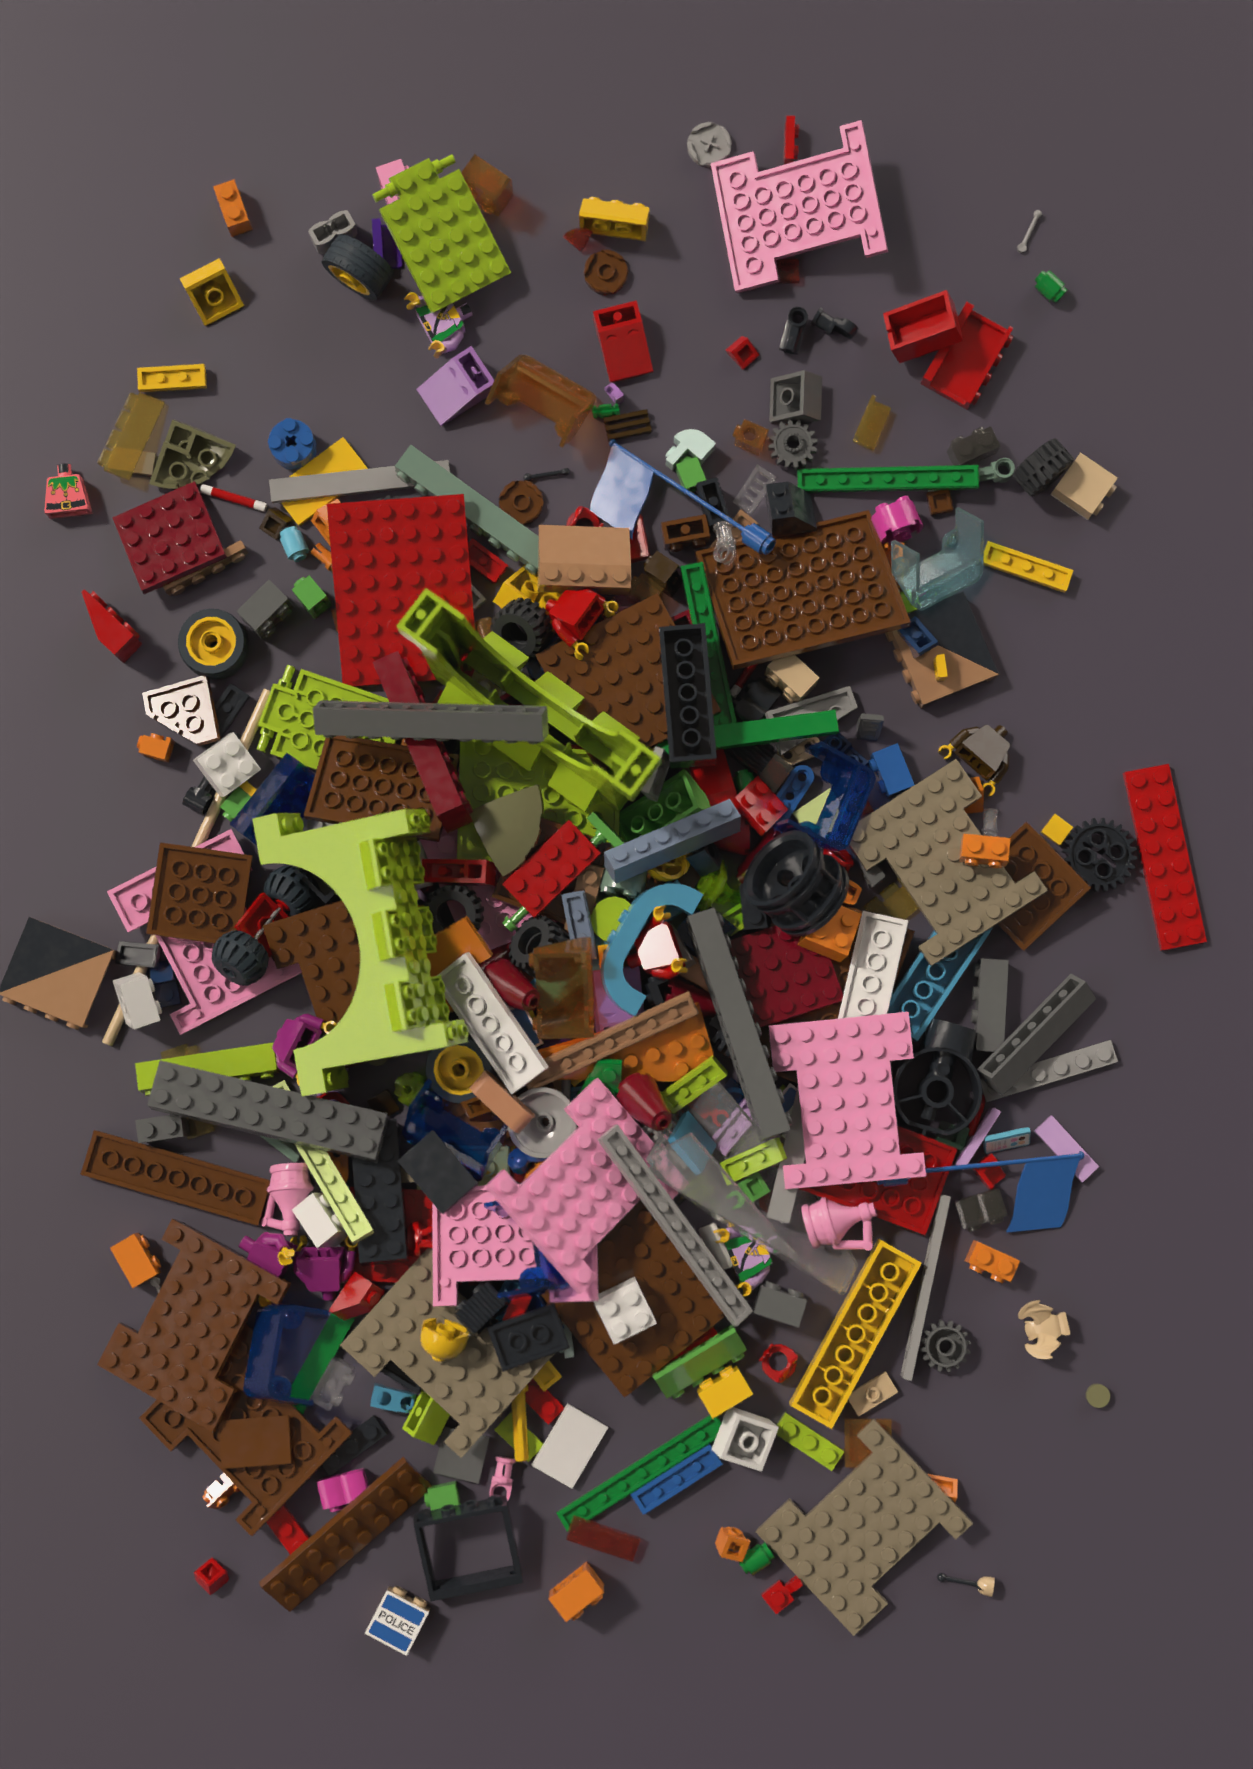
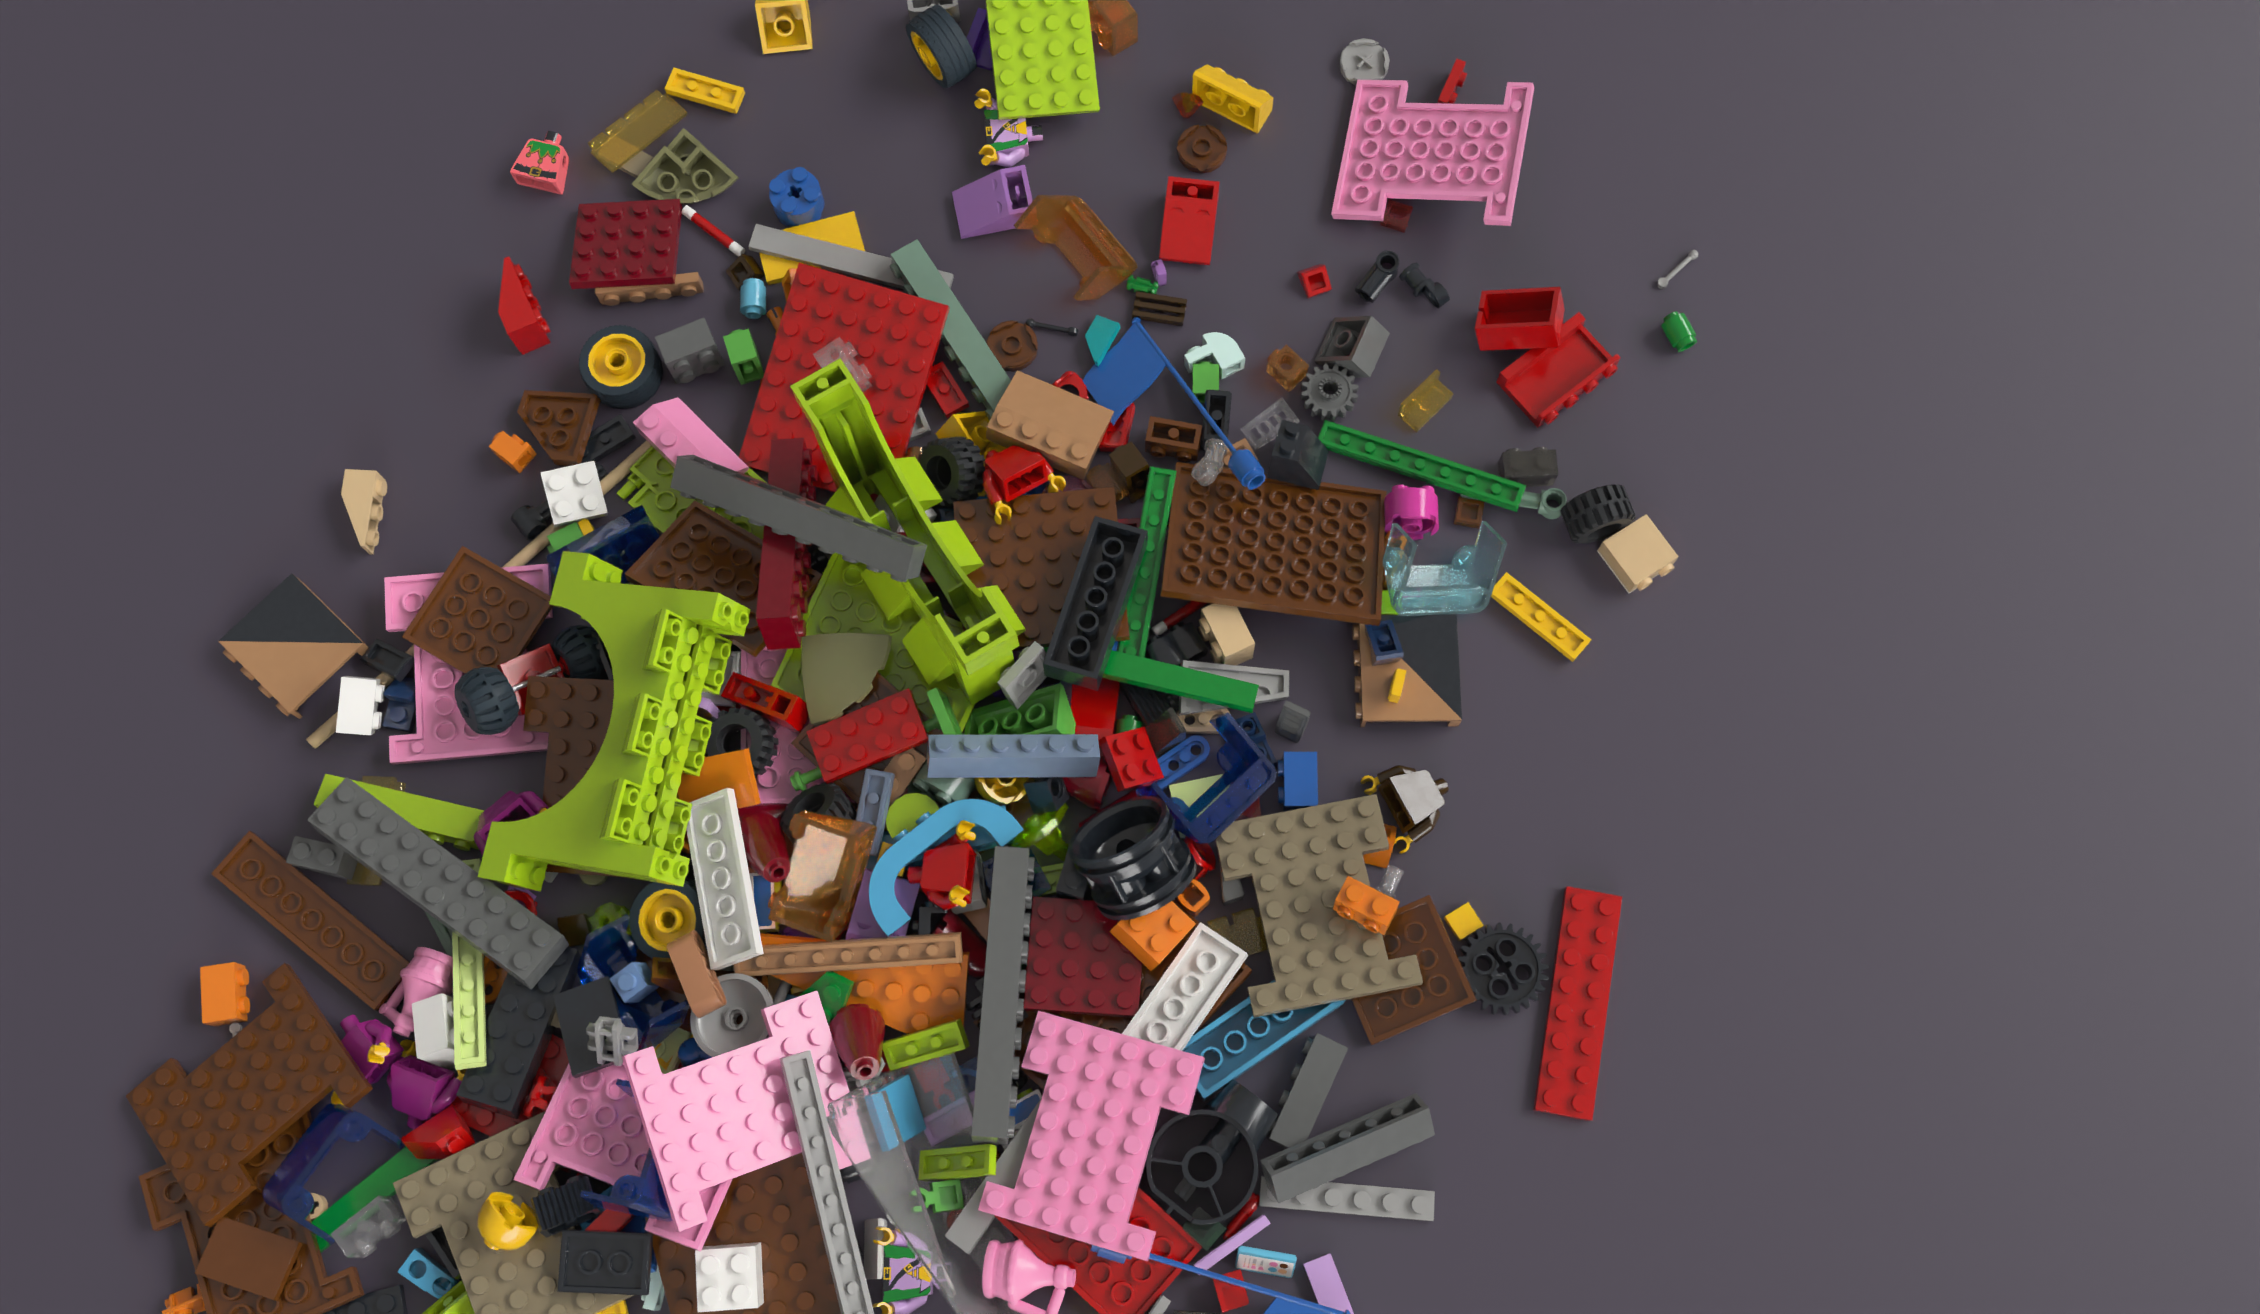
camera: 25 degrees right, 10 degrees down
(53, 833) = (363, 498): none -> tan slope
(297, 685) = (678, 432): none -> bright pink slope
(402, 580) = (845, 351): none -> clear brick
(454, 1126) = (634, 982): none -> medium blue brick
(466, 1174) = (615, 1036): none -> light grey piece
(590, 468) = (1100, 337): none -> teal tile

